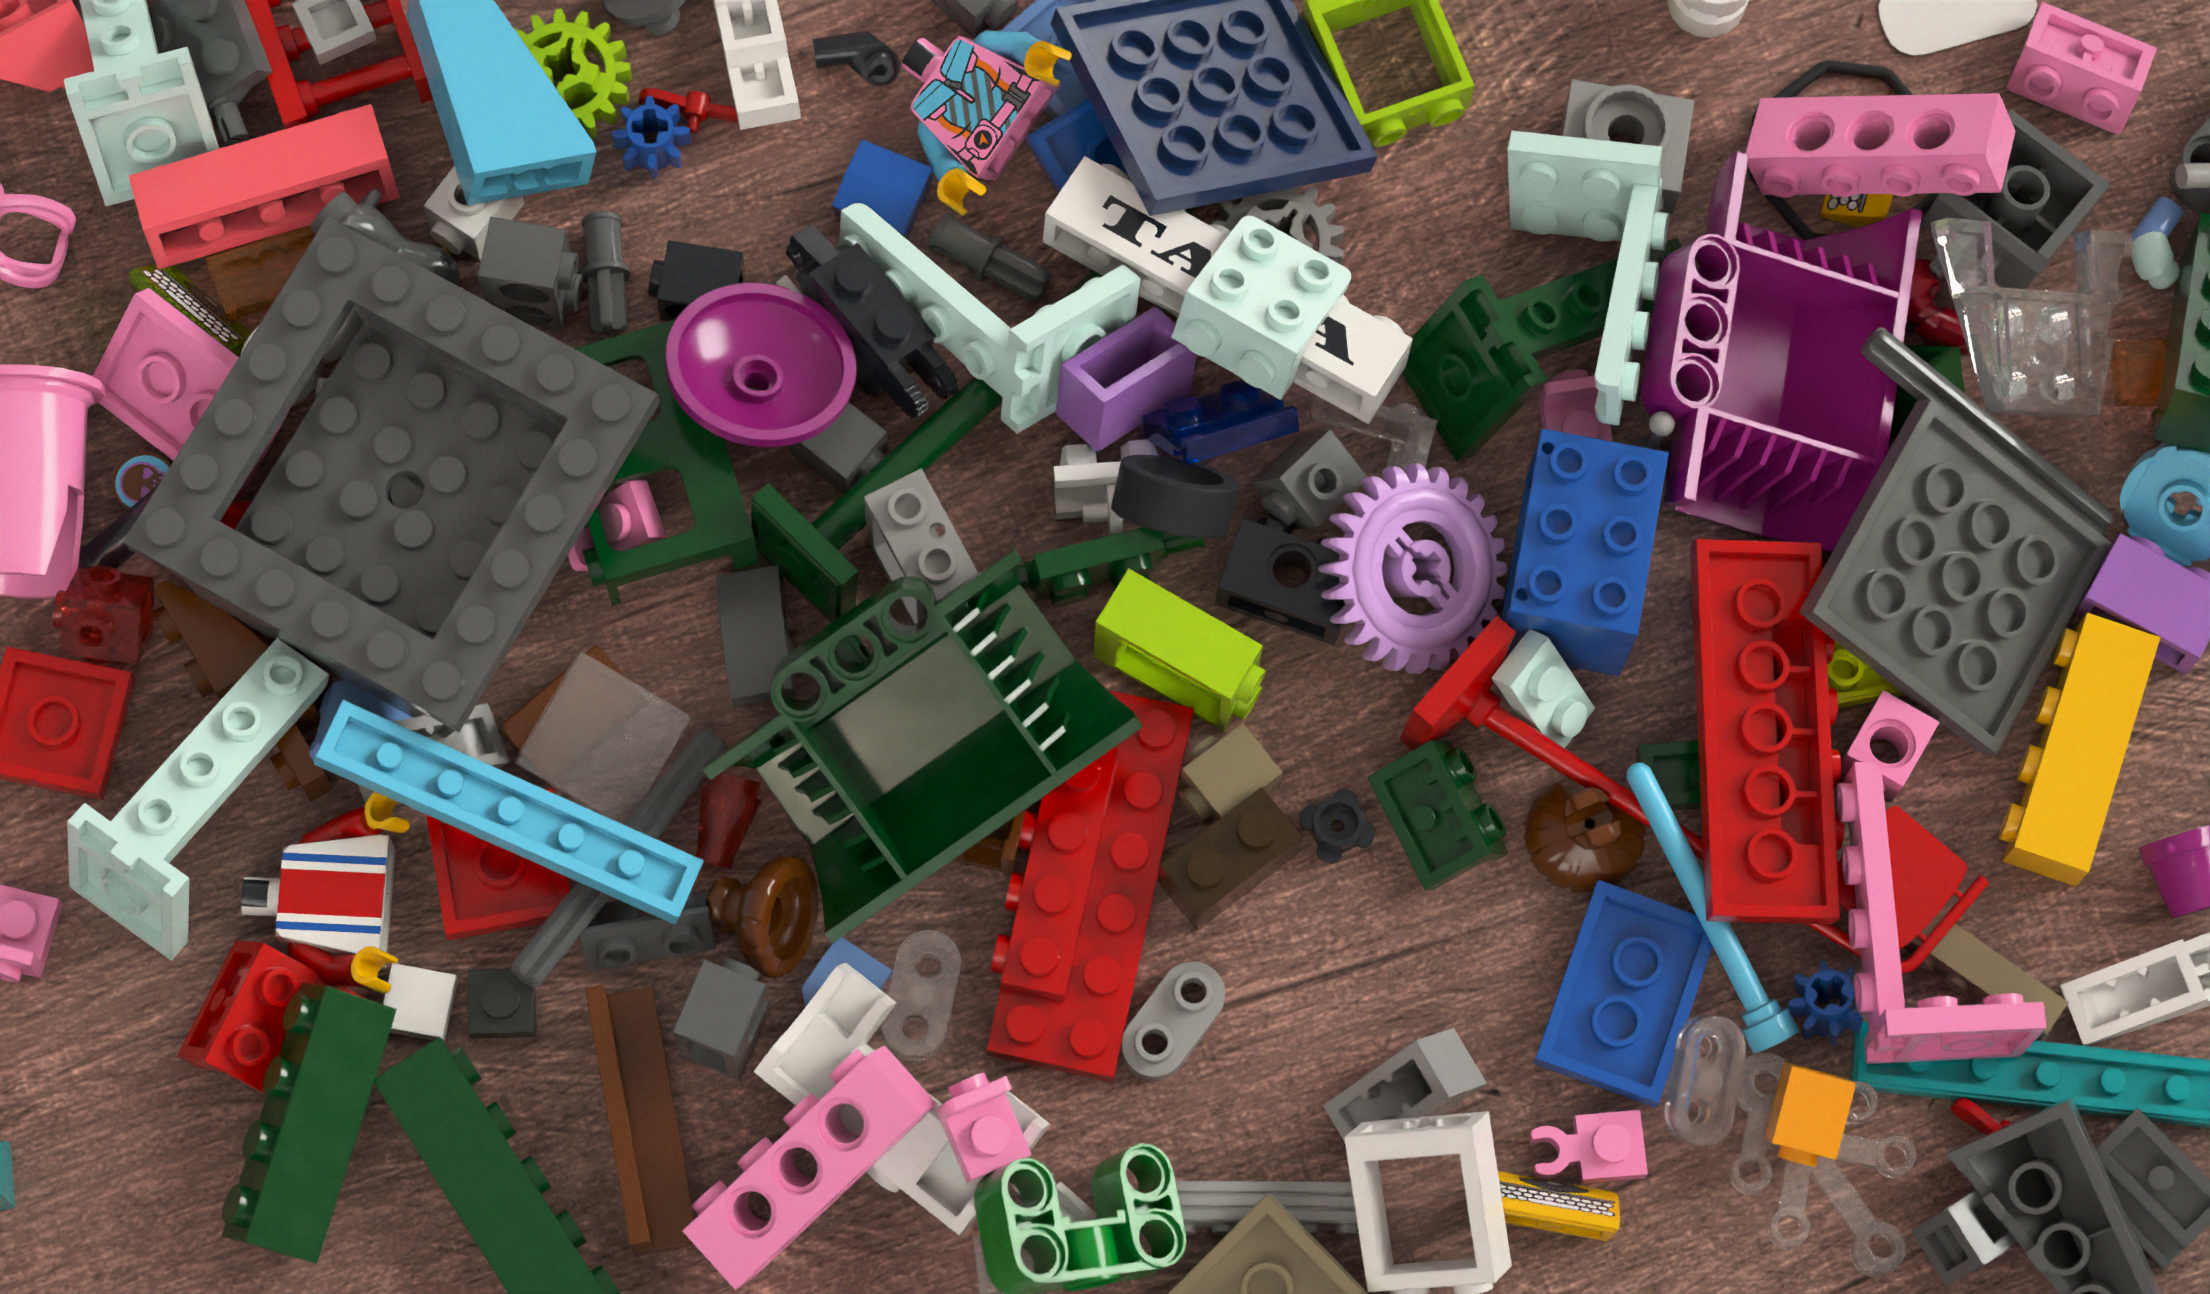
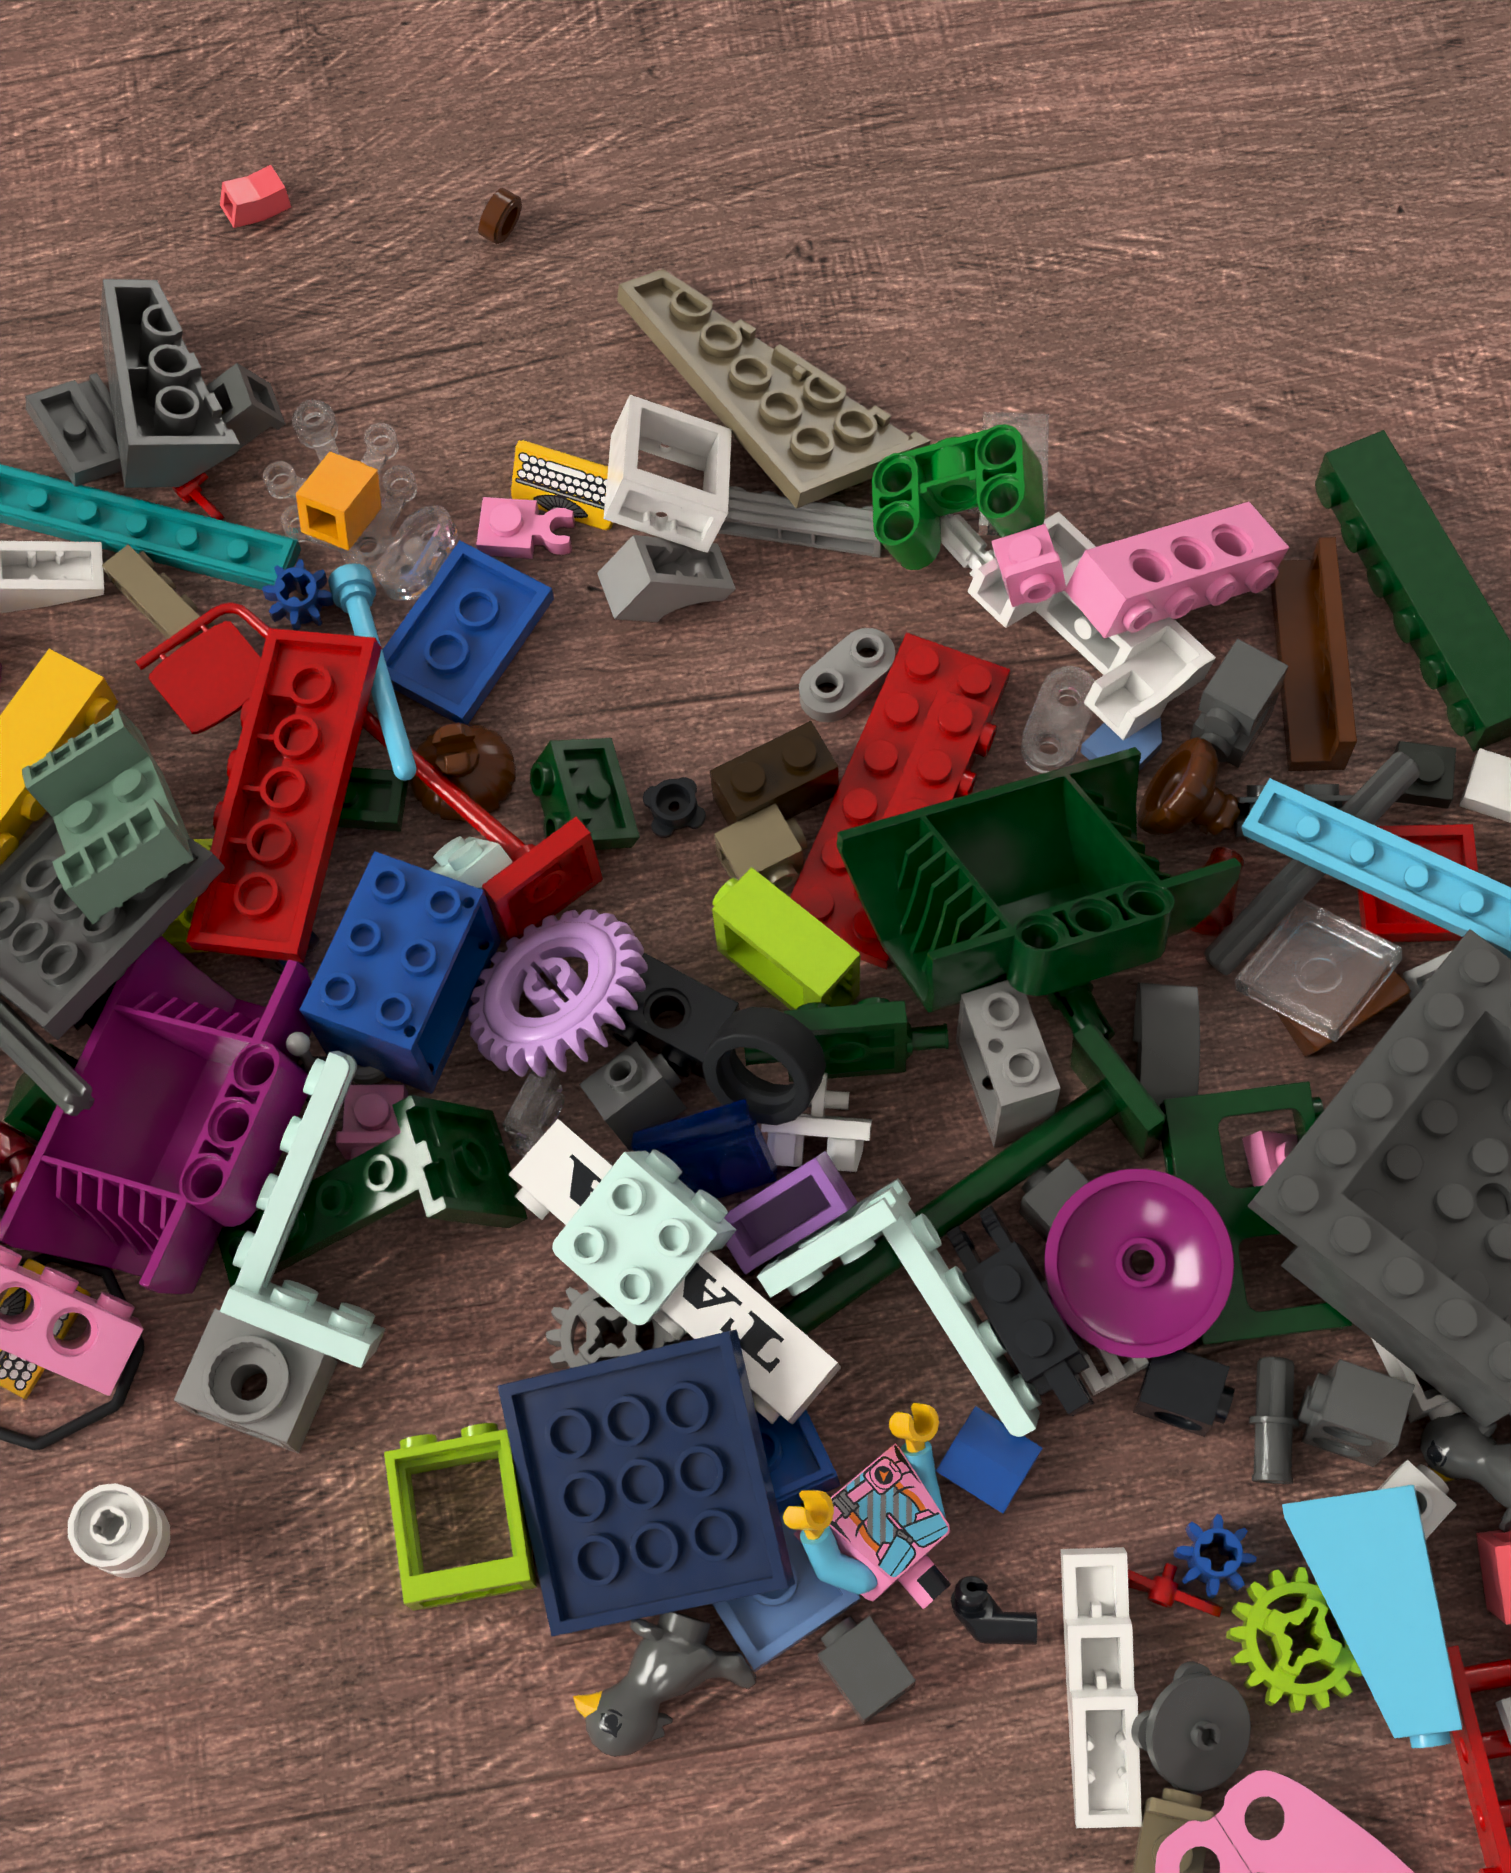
camera: 160 degrees left, 5 degrees down
(990, 258) = (888, 1371): dark grey axle -> none
(1900, 725) = (185, 766): bright pink brick -> none
(1937, 652) = (109, 814): none -> sand green plate
(1938, 1026) = (230, 537): bright pink bracket -> none

